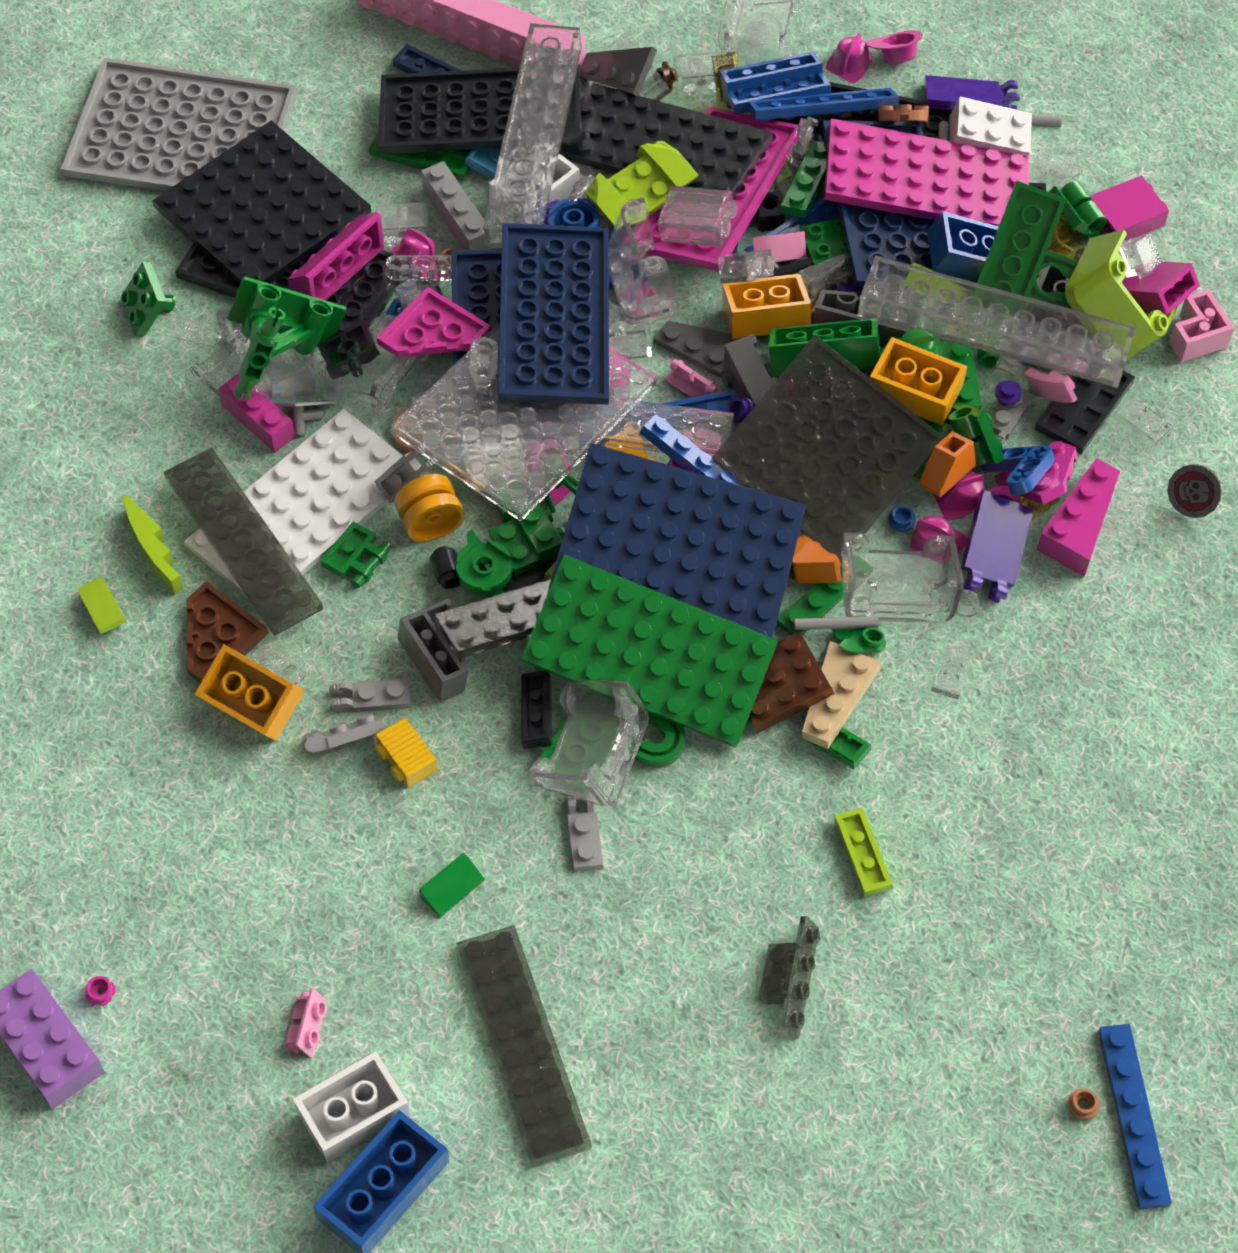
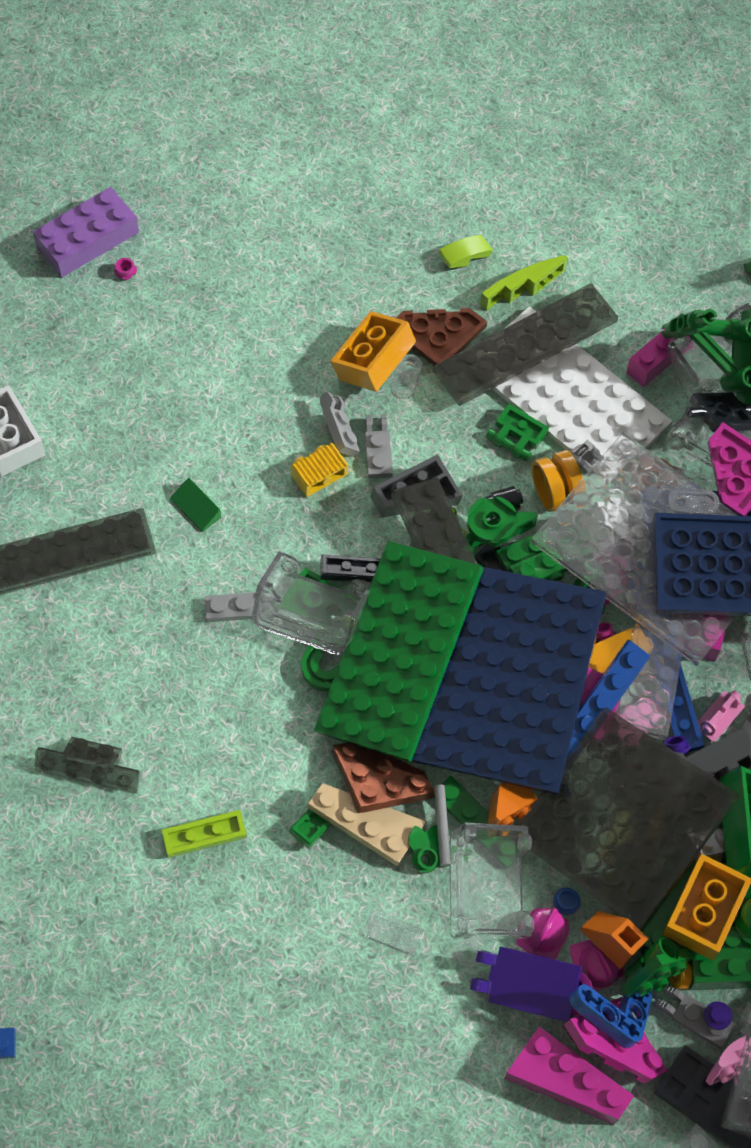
camera: 90 degrees right, 5 degrees up
(301, 415) = (668, 388): light grey shield -> none
(308, 1011) = (83, 405): bright pink hinge -> none

